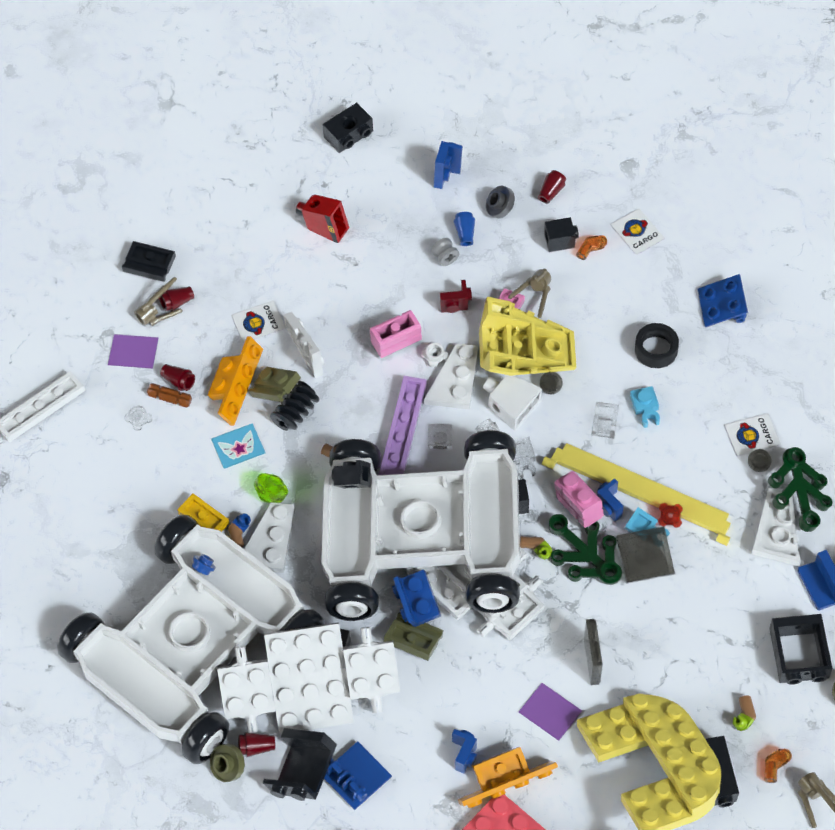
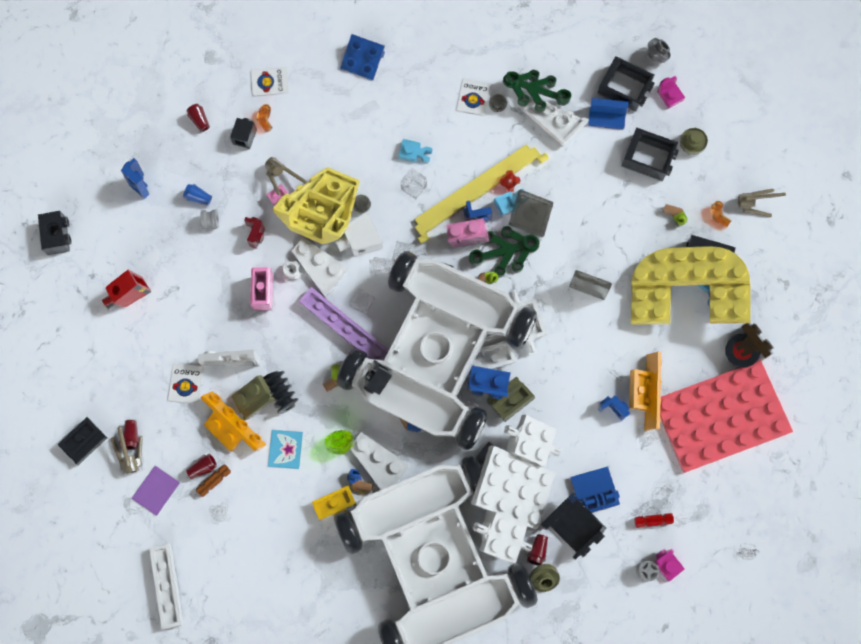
camera: 65 degrees left, 15 degrees up
(203, 564) = (386, 522): blue plate -> none
(500, 201) = (190, 158): flat silver plate -> none
(550, 711) = (610, 336): medium lavender sticker -> none
(656, 360) = (369, 106): black tyre -> none

